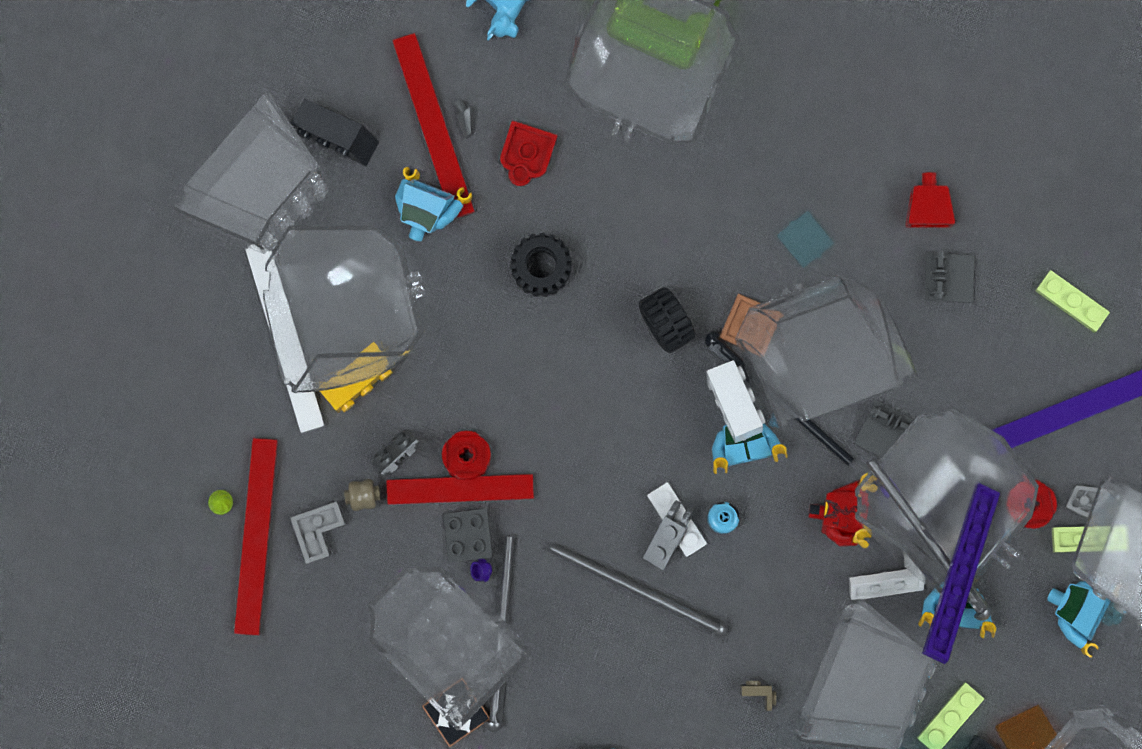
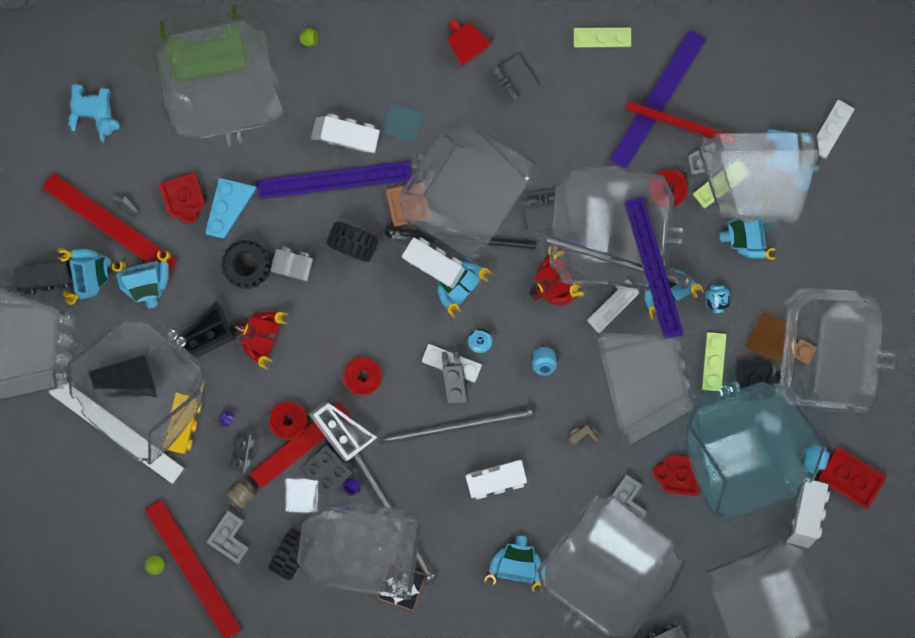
camera: 35 degrees left, 5 degrees up
(331, 288) = (123, 379): none -> black wedge
(356, 594) = (285, 559): none -> black tyre
(375, 155) = (87, 271): none -> medium azure torso
(405, 406) = (226, 418): none -> dark purple plate
(423, 541) = (301, 495): none -> clear piece
(452, 305) = (208, 332): none -> black wedge
(502, 347) = (260, 335): none -> red torso
(512, 505) = (341, 431): none -> white wedge
(566, 193) = (227, 207): none -> medium azure wedge
(587, 299) = (291, 264): none -> light grey brick
(588, 460) = (372, 381): none -> red plate
(636, 673) = (496, 479): none -> white wedge
(692, 246) = (334, 180): none -> dark purple tile
(739, 207) = (345, 133): none -> white wedge
(772, 85) = (309, 37): none -> lime plate
(774, 587) = (544, 361): none -> medium azure head
(1002, 654) = (717, 298): none -> medium azure head
(1084, 433) = (671, 120): none -> red tile

